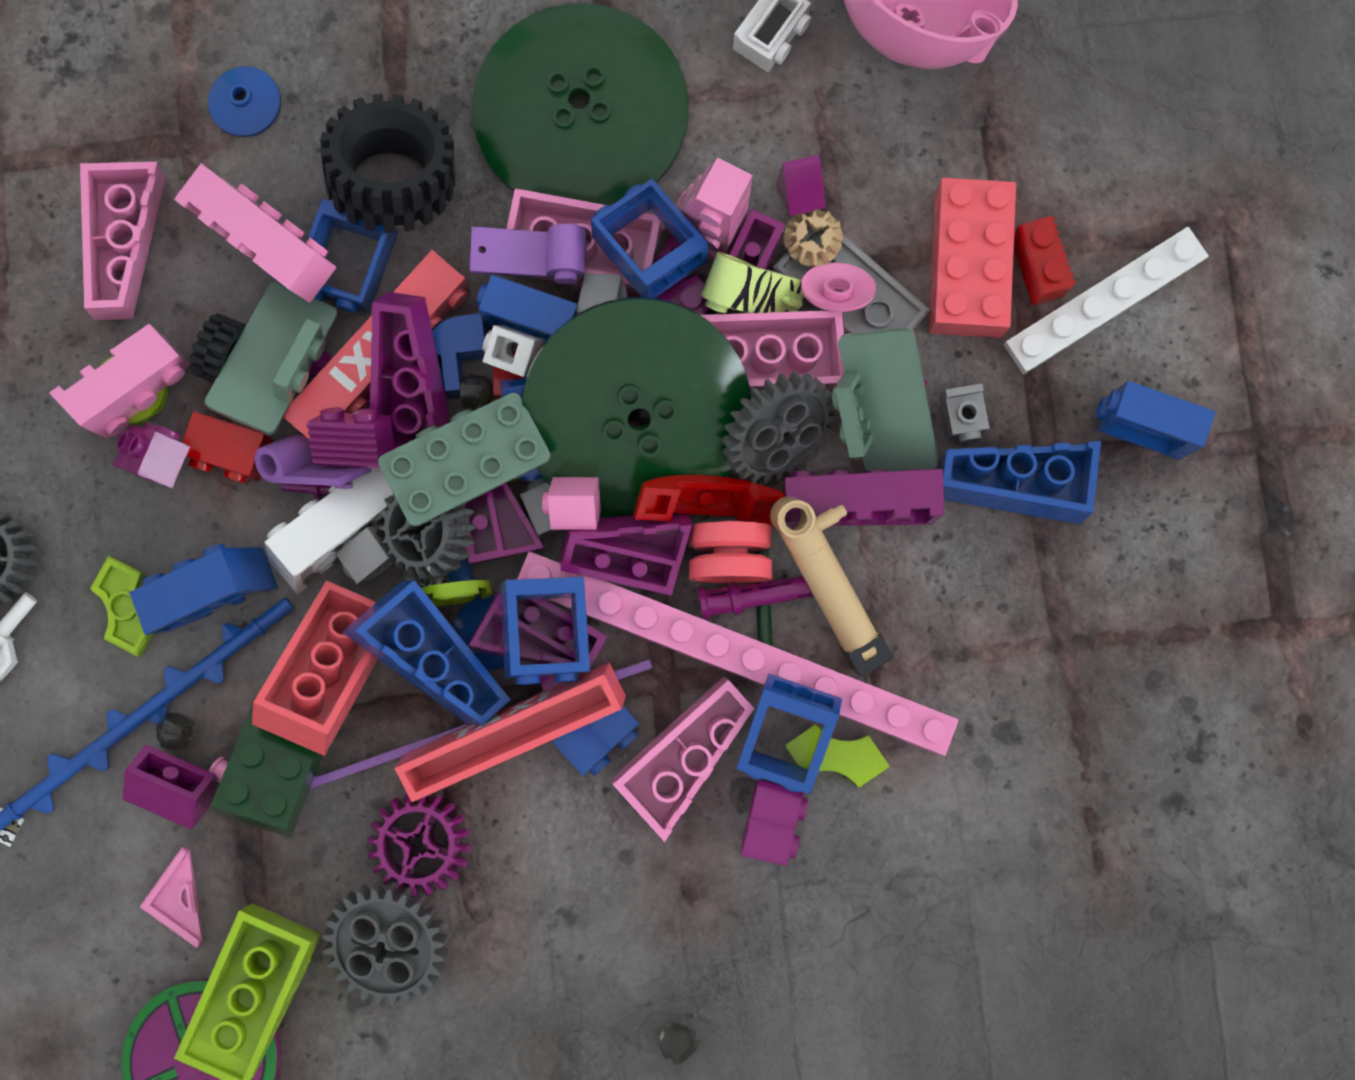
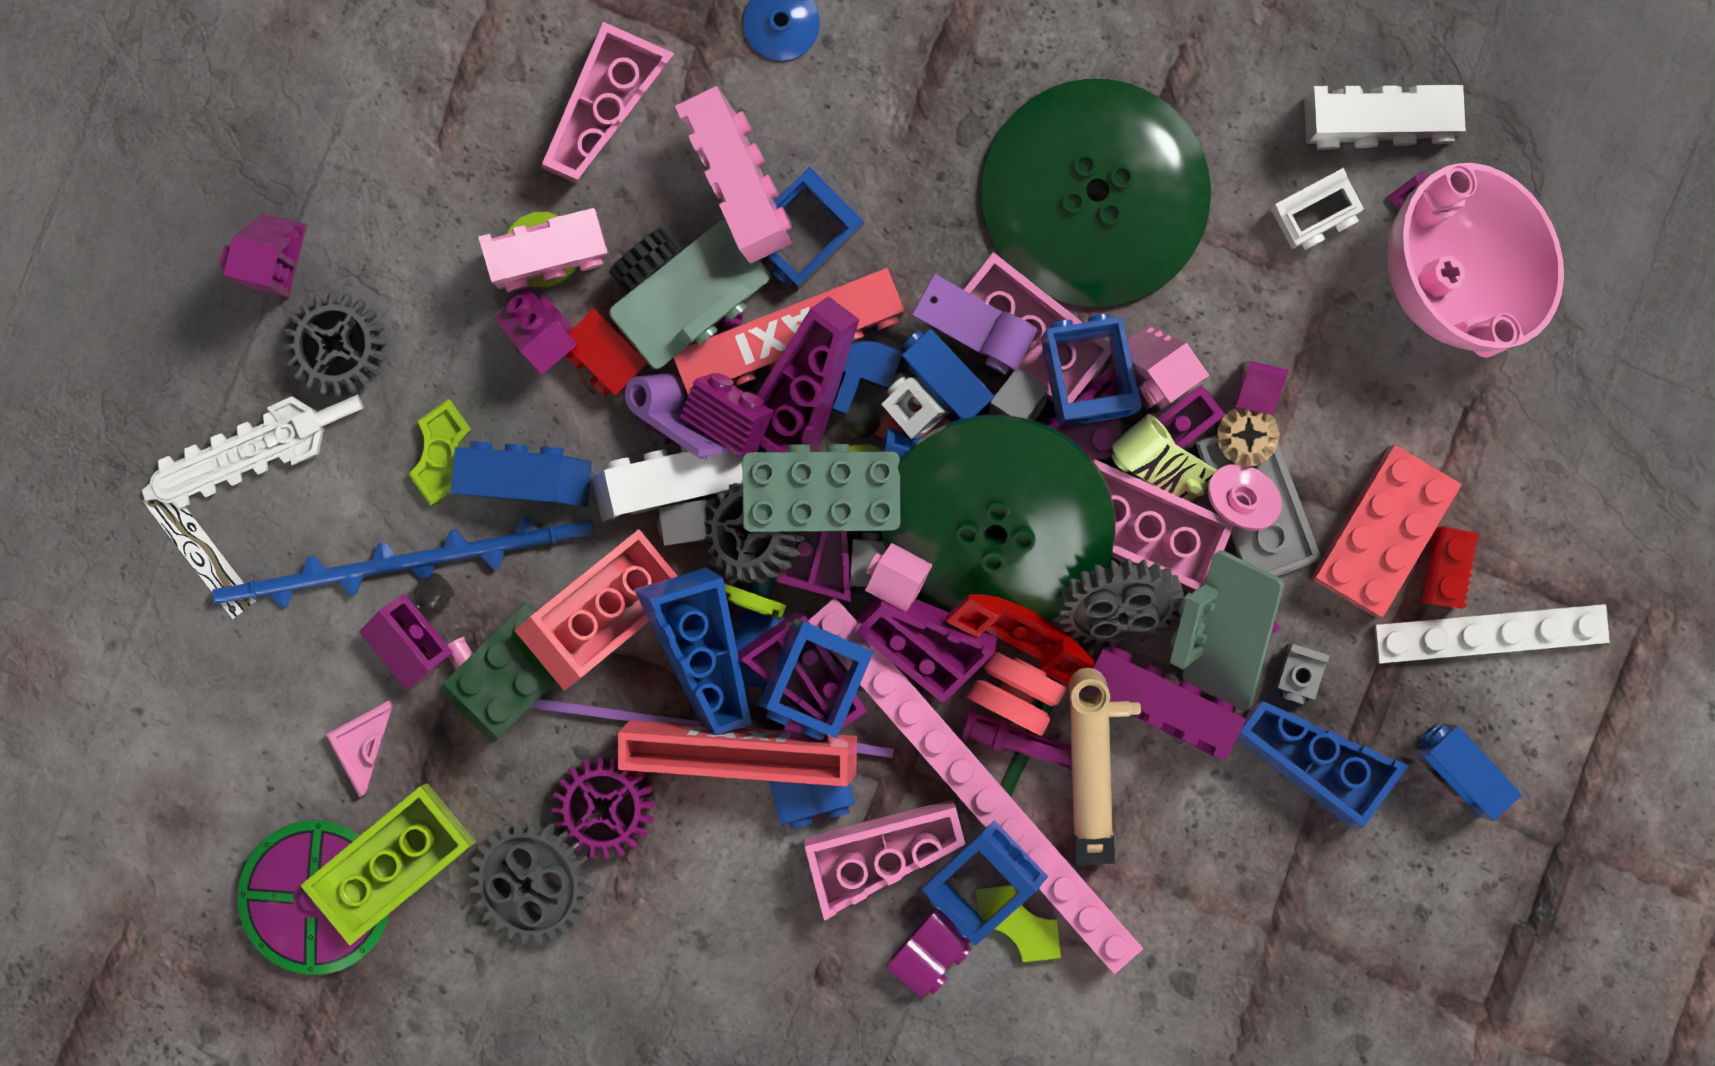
camera: 25 degrees right, 5 degrees up
(388, 129) = (912, 133): black tyre -> none

